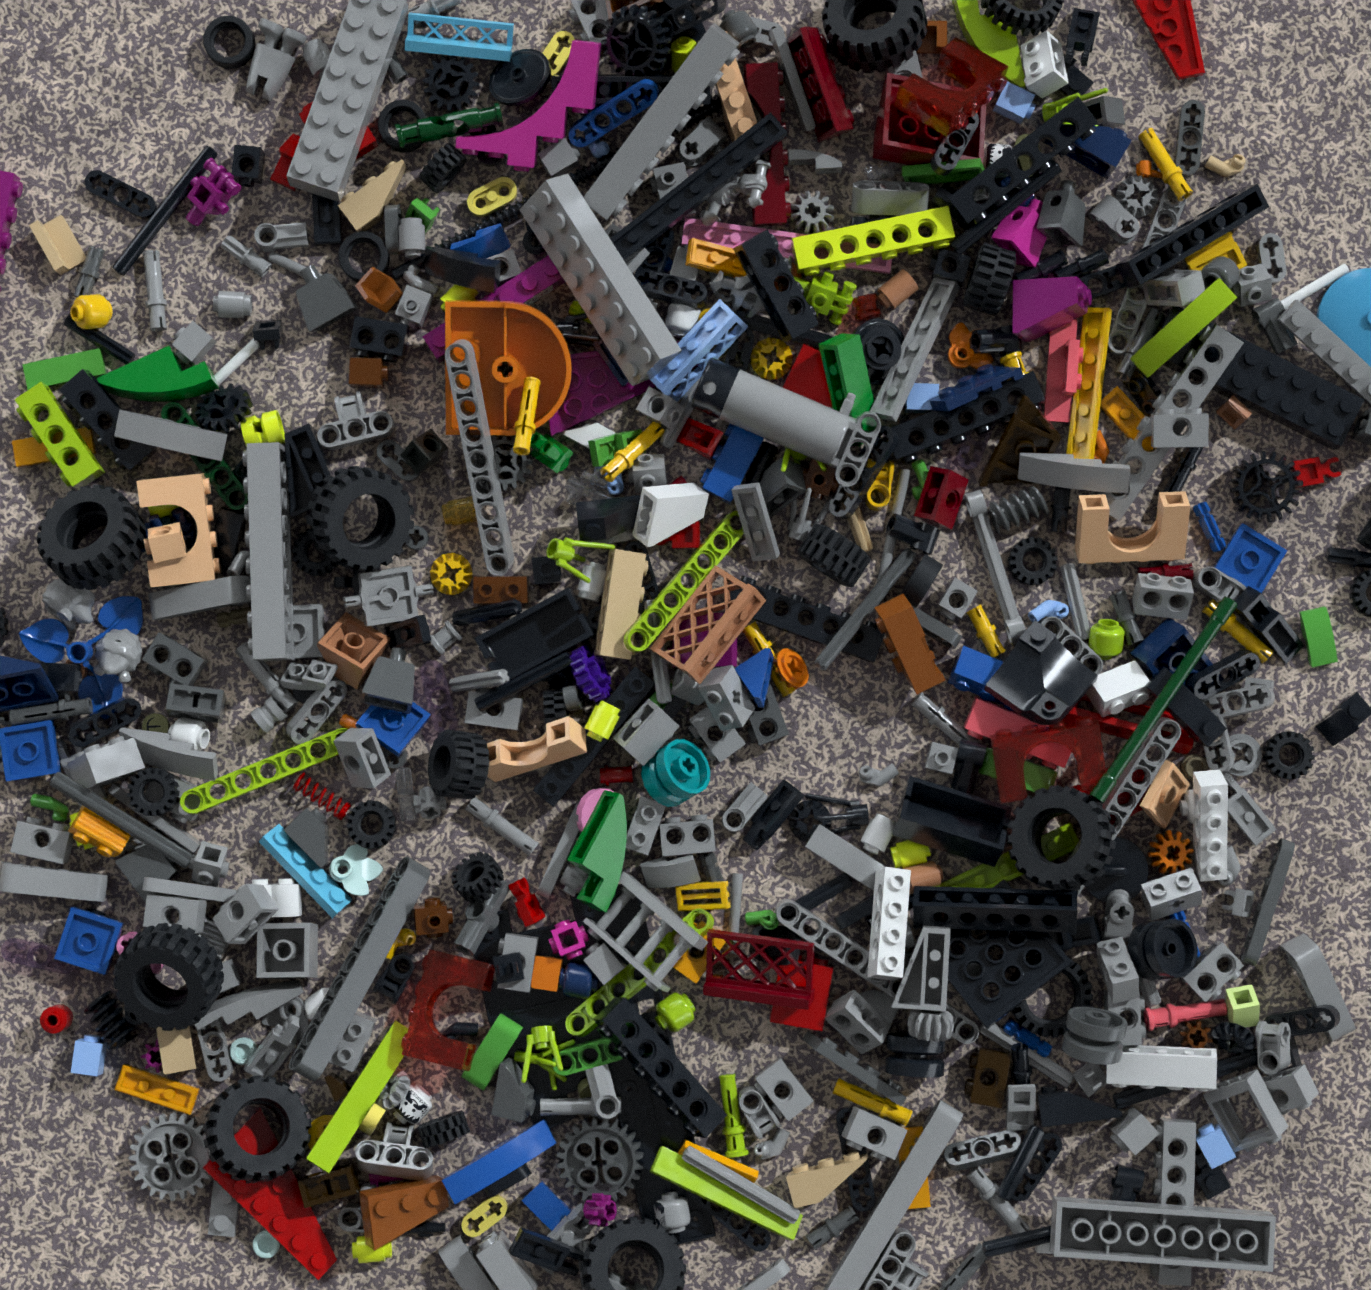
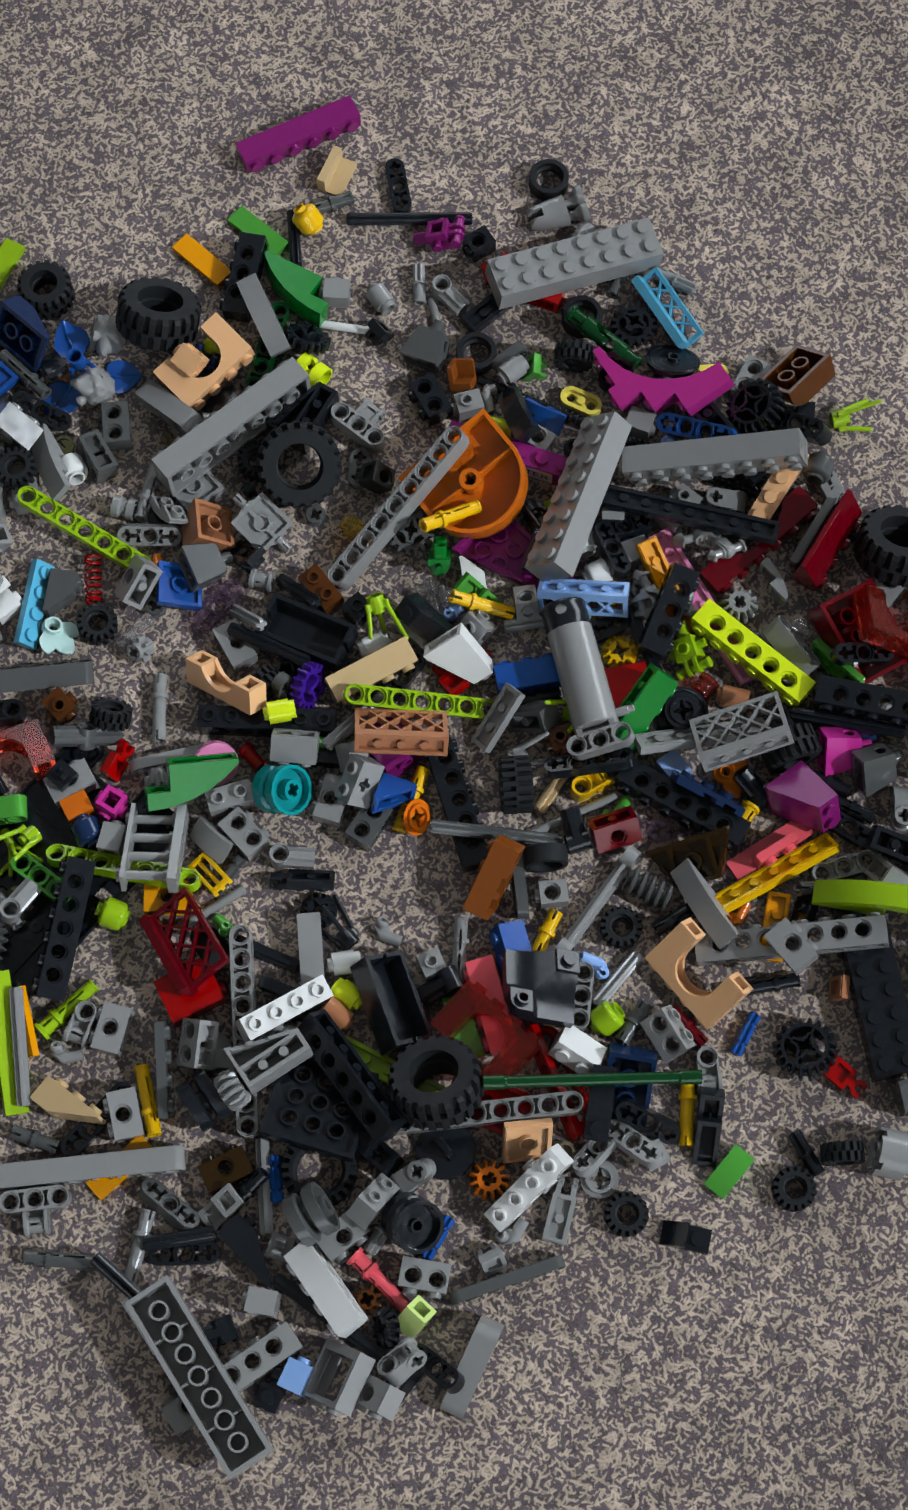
camera: 55 degrees right, 15 degrees down
(30, 406) = (218, 226): lime brick -> none
(156, 301) = (345, 253): light grey pin -> none
(367, 373) = (401, 407): reddish brown brick -> none
(368, 204) = (509, 329): tan slope -> none
(405, 937) = (30, 697): yellow arm -> none
(458, 764) = (179, 643): black tyre -> none
(463, 577) = (298, 556): yellow gear -> none
(700, 438) = (527, 644): red slope -> none
(968, 319) = (745, 745): none -> light grey fence
(1171, 894) = (459, 1201): light grey brick -> none
(1250, 558) = (745, 1079): blue plate -> none

